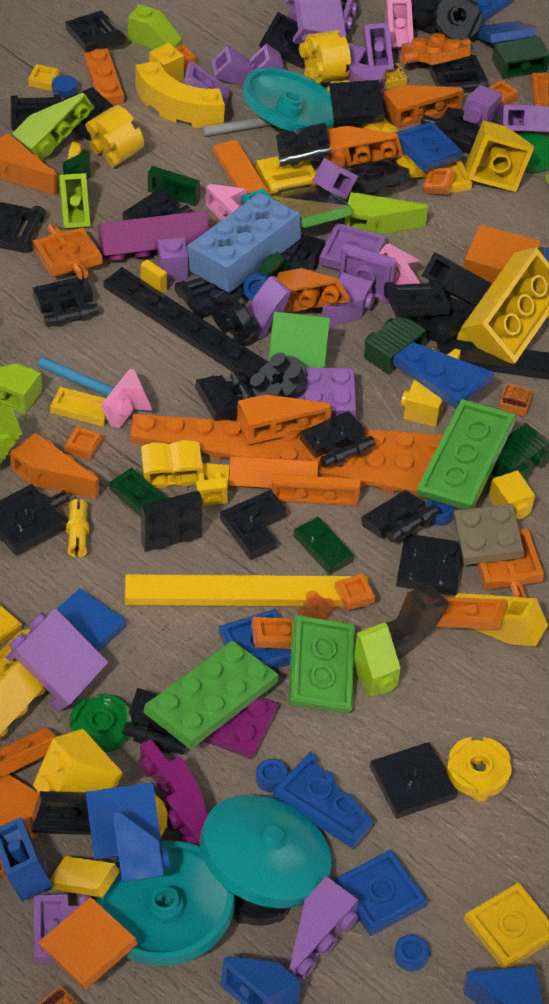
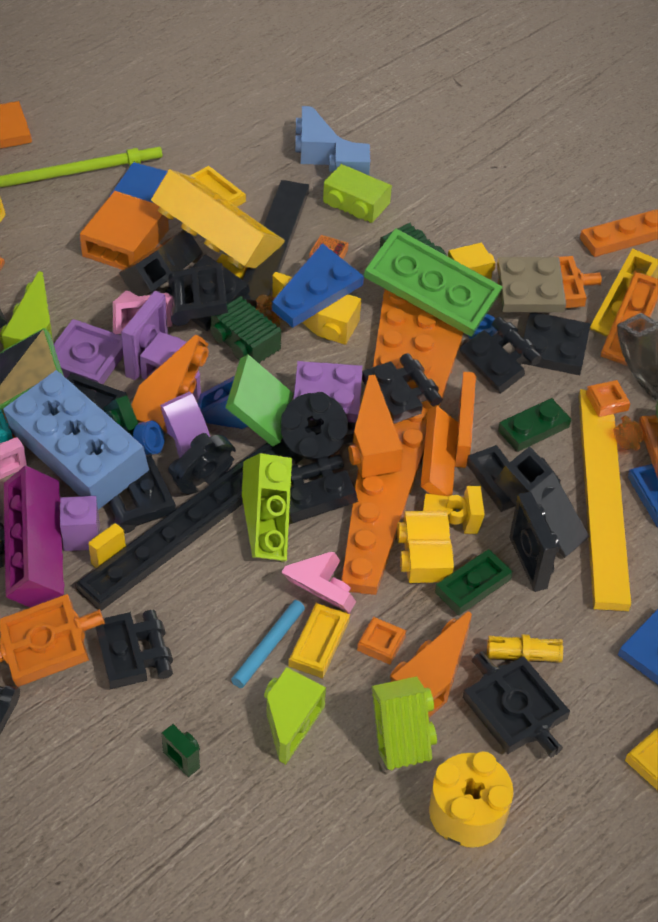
camera: 85 degrees left, 0 degrees up
(203, 360) = (267, 504): none -> lime slope
(215, 527) = (533, 475): none -> black slope

